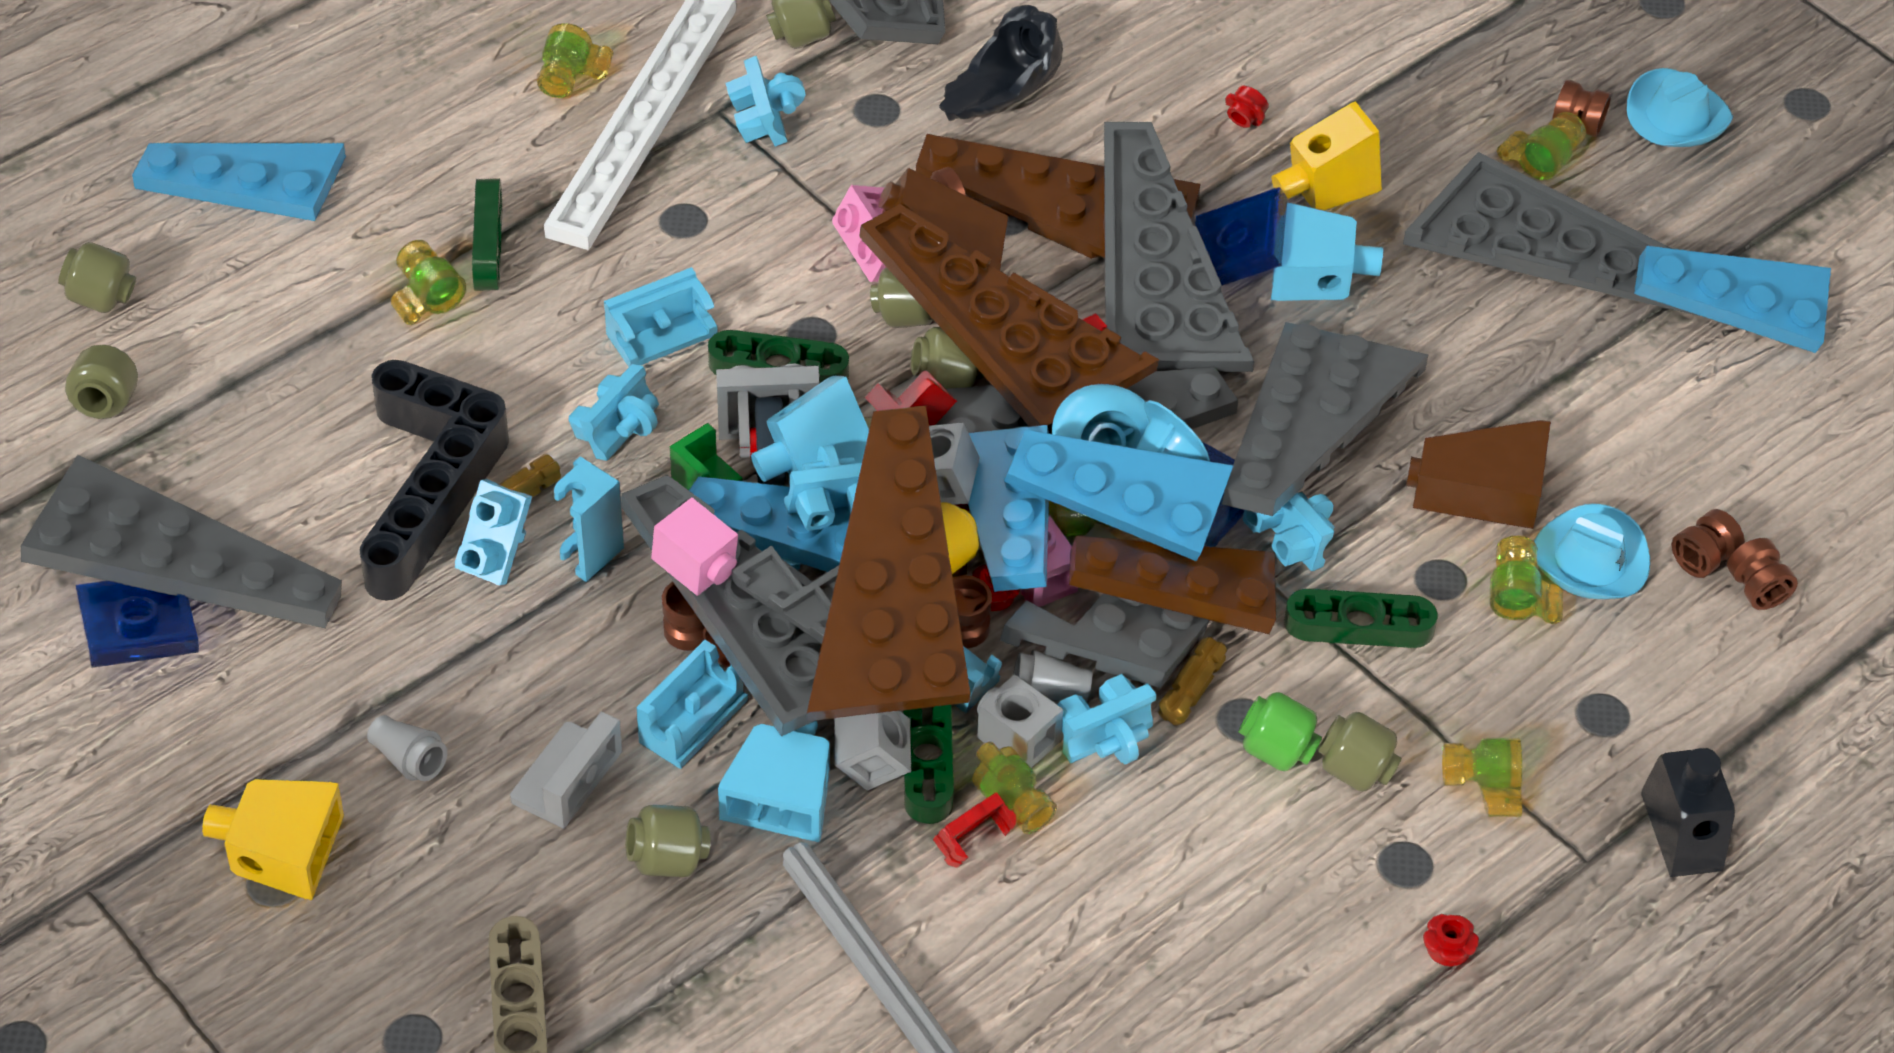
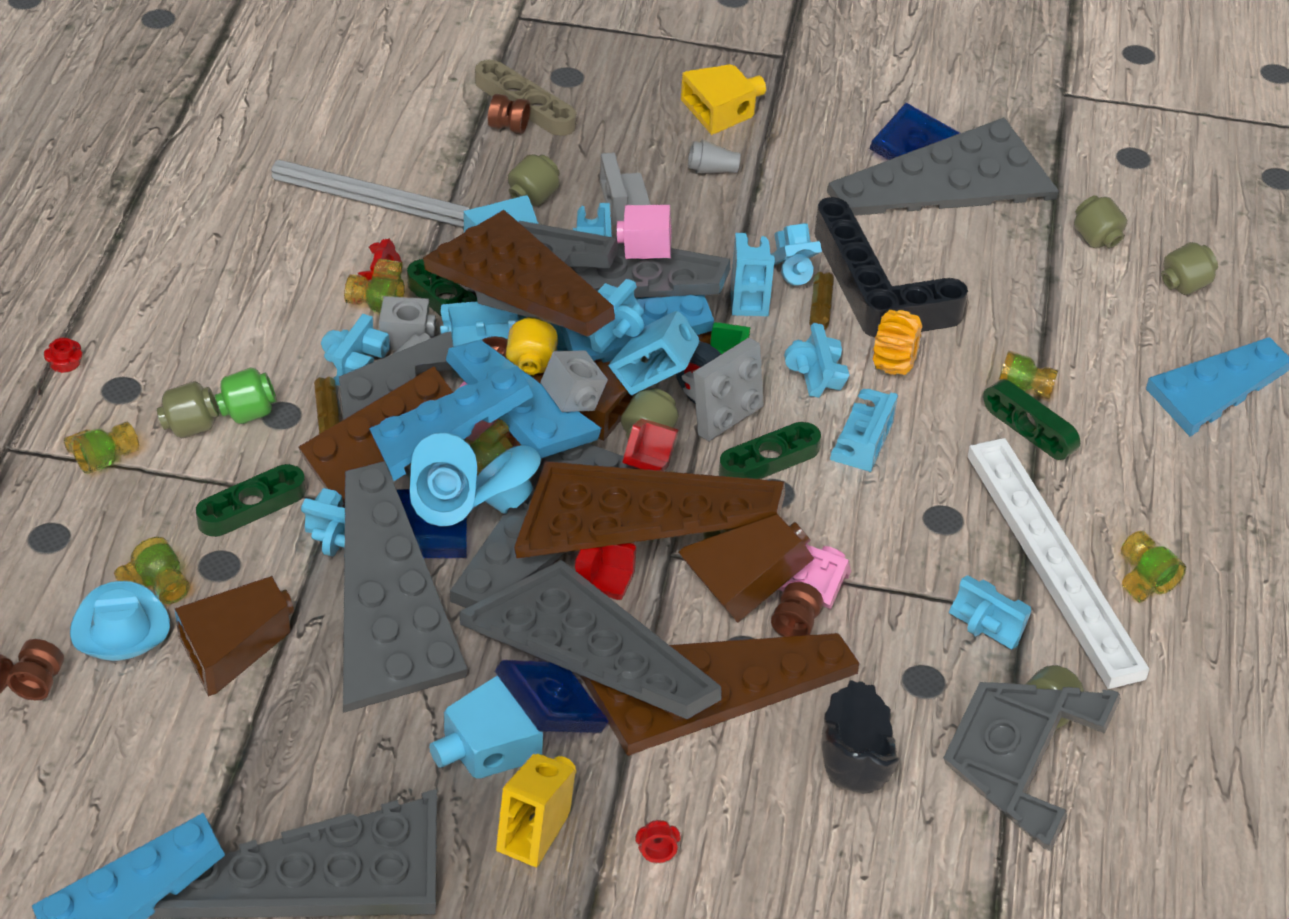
camera: 140 degrees right, 5 degrees down
(523, 363) = (897, 342): none -> light orange gear
(578, 974) = (509, 113): none -> copper wheel

